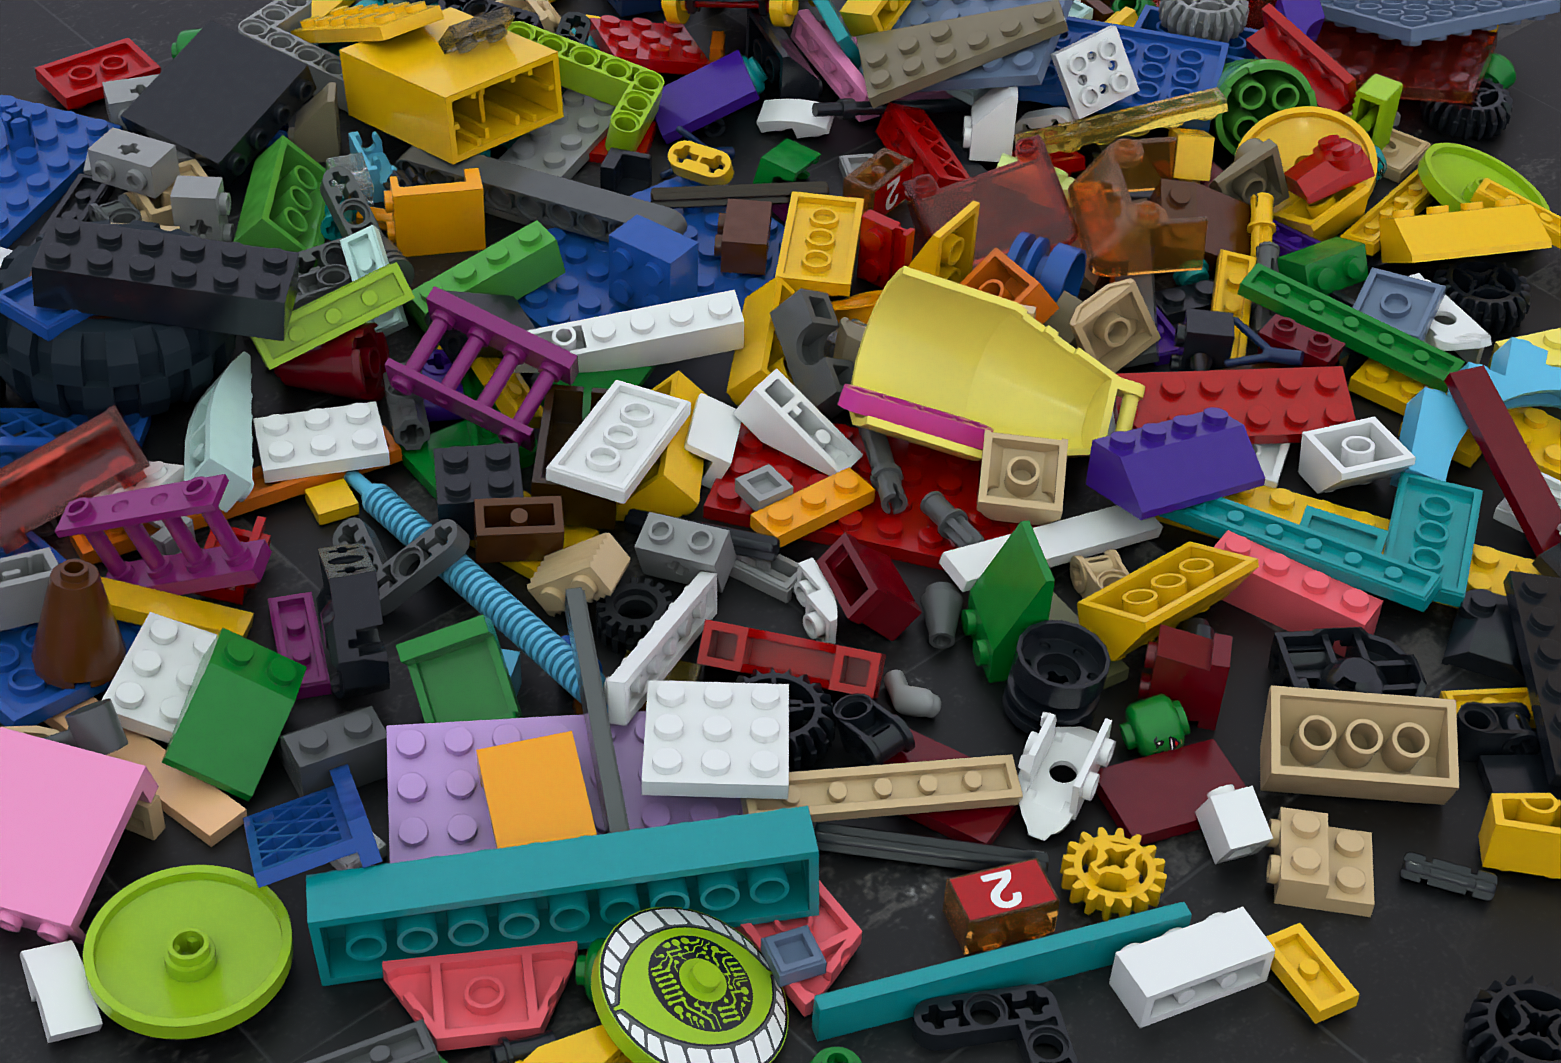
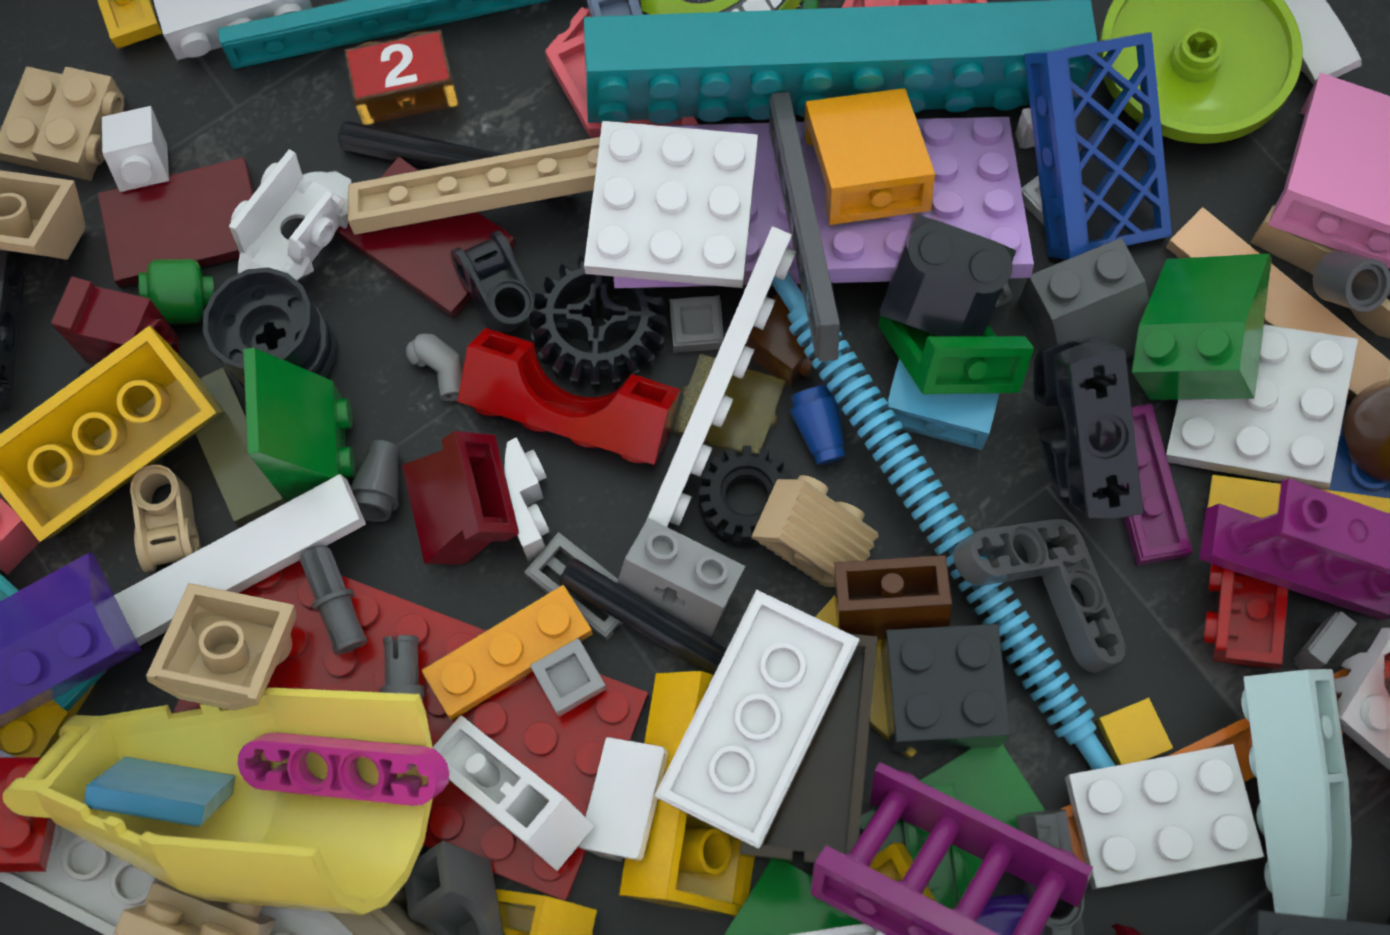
camera: 170 degrees left, 30 degrees up
(464, 702) = (946, 279): none -> black slope
(1038, 397) = (159, 791): none -> dark azure tile
(1113, 873) = (278, 108): yellow gear -> none

